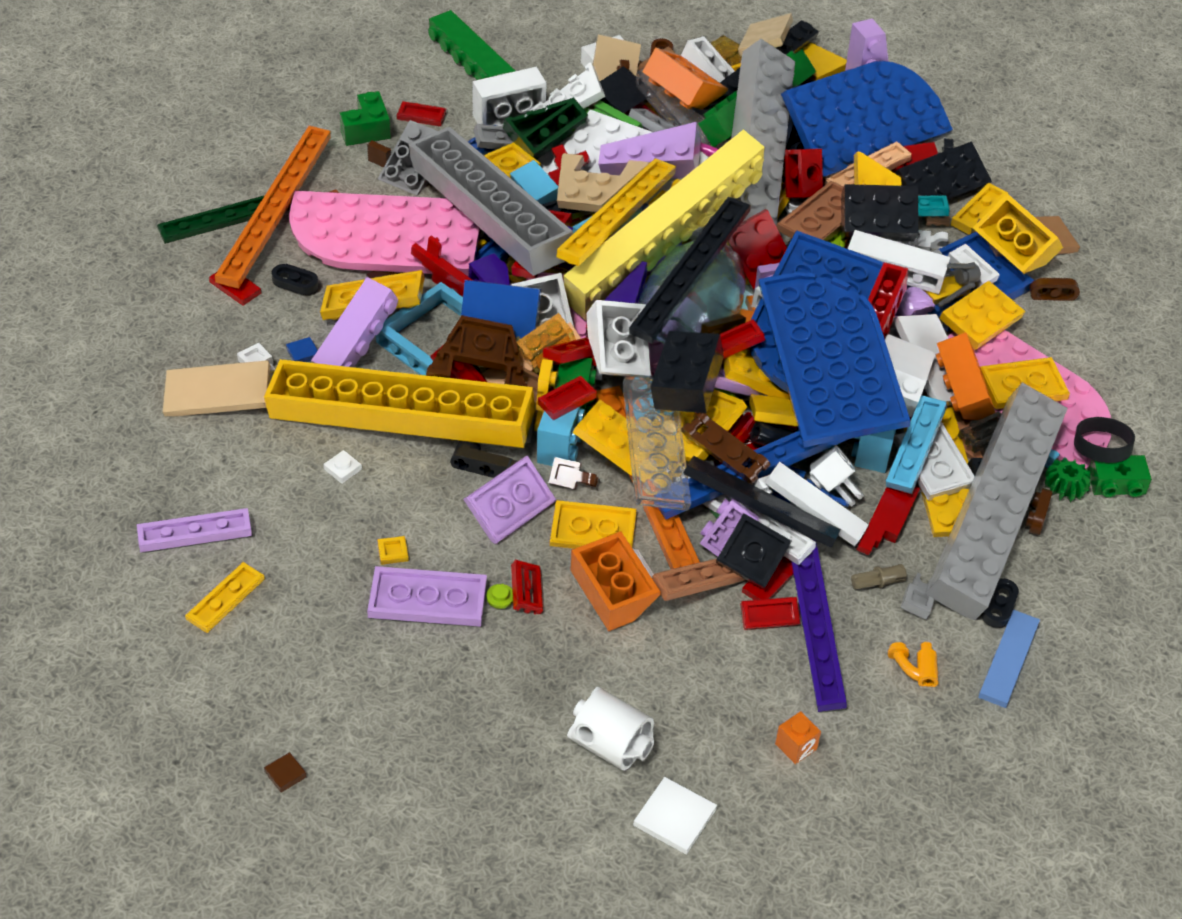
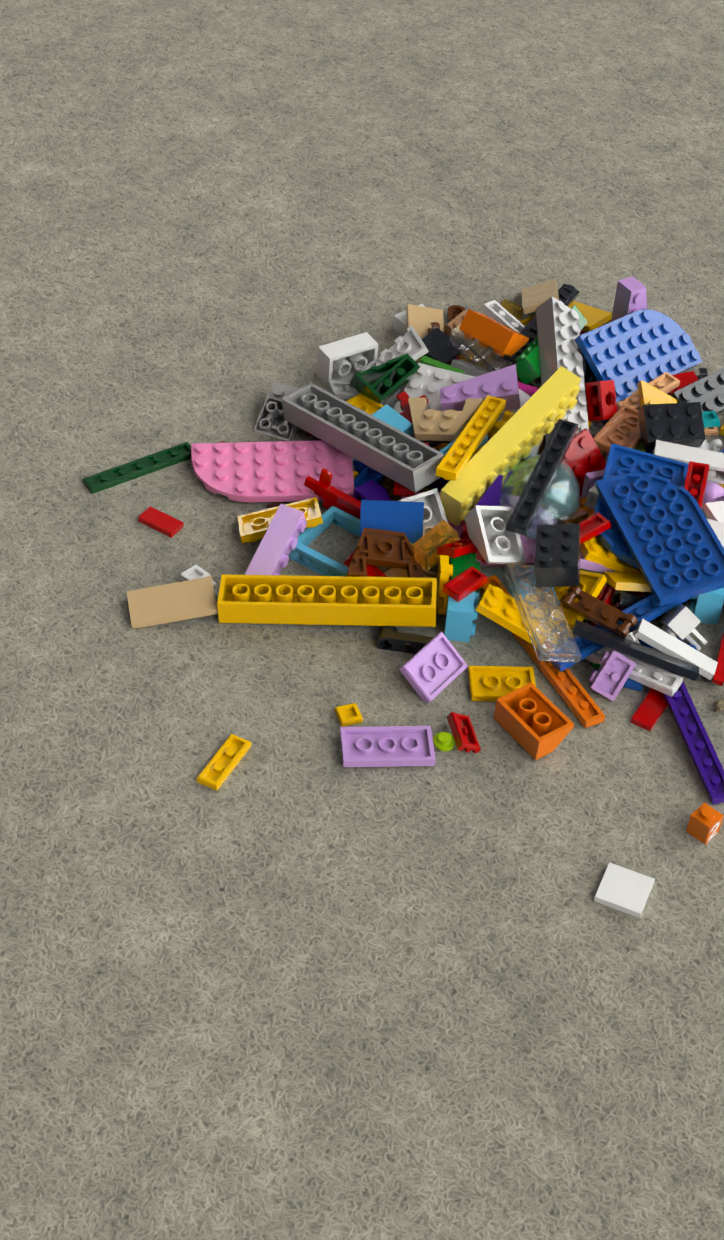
camera: 10 degrees left, 5 degrees down
(194, 530) = (184, 712): lavender plate -> none
(272, 207) = (176, 458): orange plate -> none
(285, 772) = (311, 888): reddish brown tile -> none
(297, 281) = (209, 513): black plate -> none
(302, 350) = (231, 567): blue tile -> none
(342, 466) = (289, 654): white plate -> none
(367, 122) = (233, 385): green brick -> none
(378, 153) = (250, 410): reddish brown tile -> none
(421, 113) = (267, 376): red tile -> none
(466, 46) = (299, 322): green brick -> none
(568, 474) = (472, 645): plate -> none
(612, 729) = (563, 829): white cylinder -> none
(694, 579) = (602, 711): nougat tile -> none
(753, 551) = (637, 688): black tile -> none
(770, 613) = (657, 735): red tile -> none

